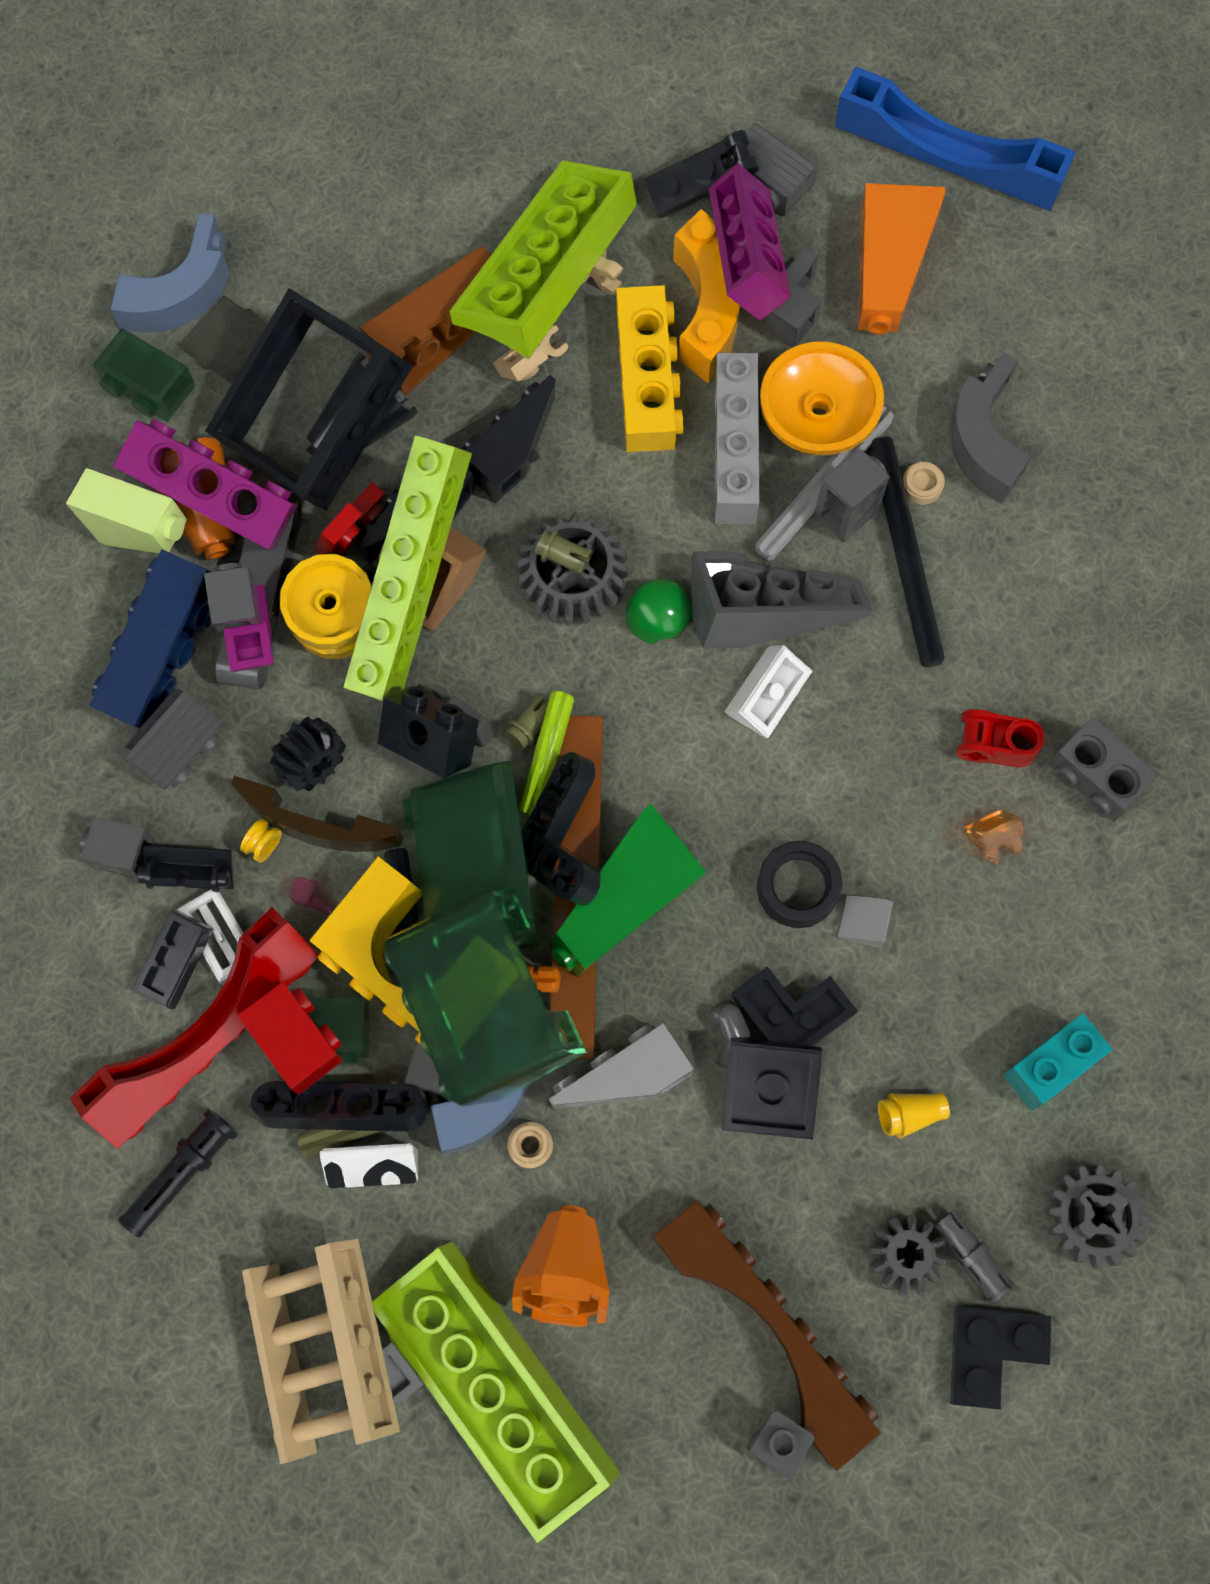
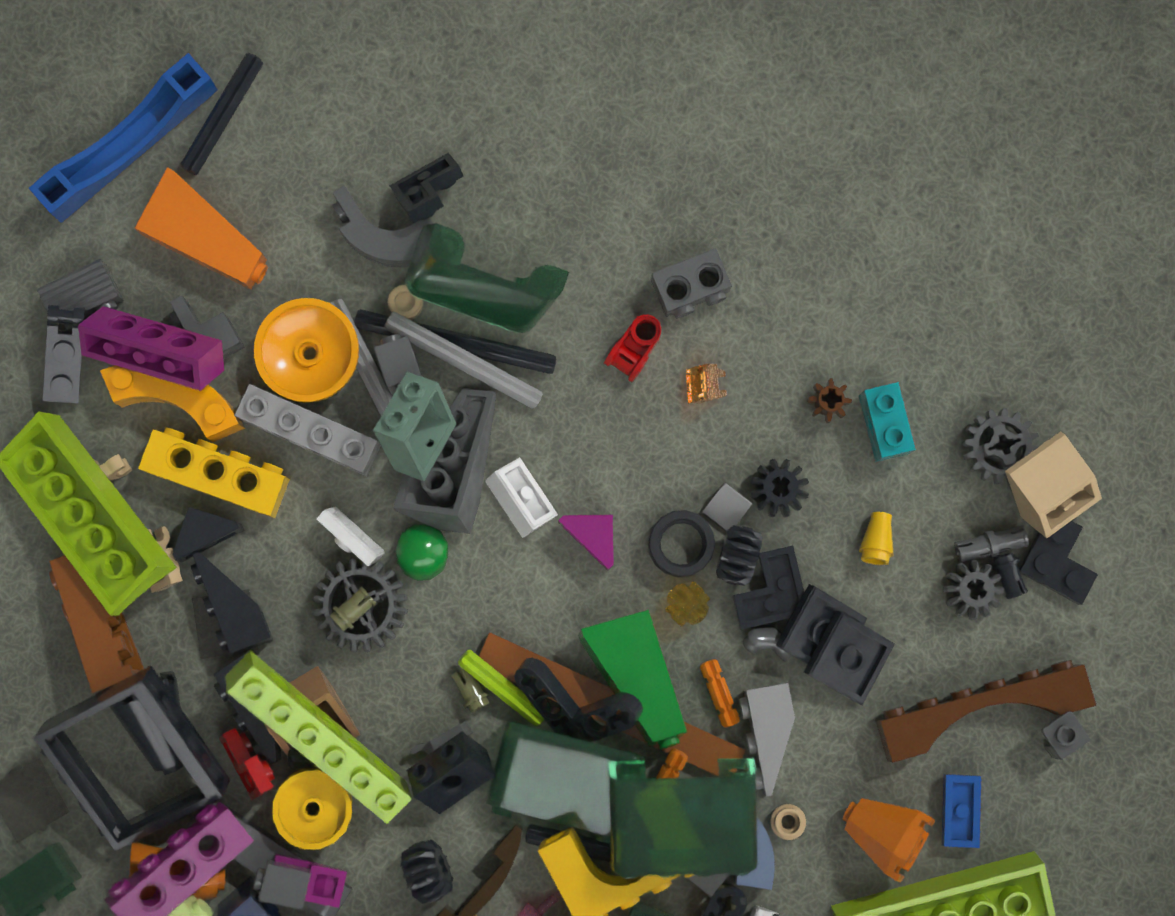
camera: 75 degrees left, 10 degrees up
(577, 382) = (202, 532): none -> black slope
(631, 1354) = (961, 811): none -> blue plate
(642, 527) = (350, 536): none -> white plate
(646, 1001) = (719, 693): none -> orange axle
(733, 918) = (687, 604): none -> clear yellow gear
(756, 1135) = (849, 657): none -> black tile
(765, 781) = (593, 534): none -> magenta slope
(803, 558) = (406, 433): none -> sand green window
(816, 950) = (739, 555): none -> black gear
(890, 564) = (464, 360): none -> light grey axle
(929, 982) = (766, 487): none -> black gear
(946, 1295) = (1010, 575): none -> black pin
(973, 536) = (442, 280): none -> clear green windscreen
(1028, 224) = (221, 113): none -> black axle
(1047, 440) = (418, 190): none -> black plate
(1048, 972) = (822, 406): none -> reddish brown gear
(1084, 1296) = (1052, 485): none -> tan slope

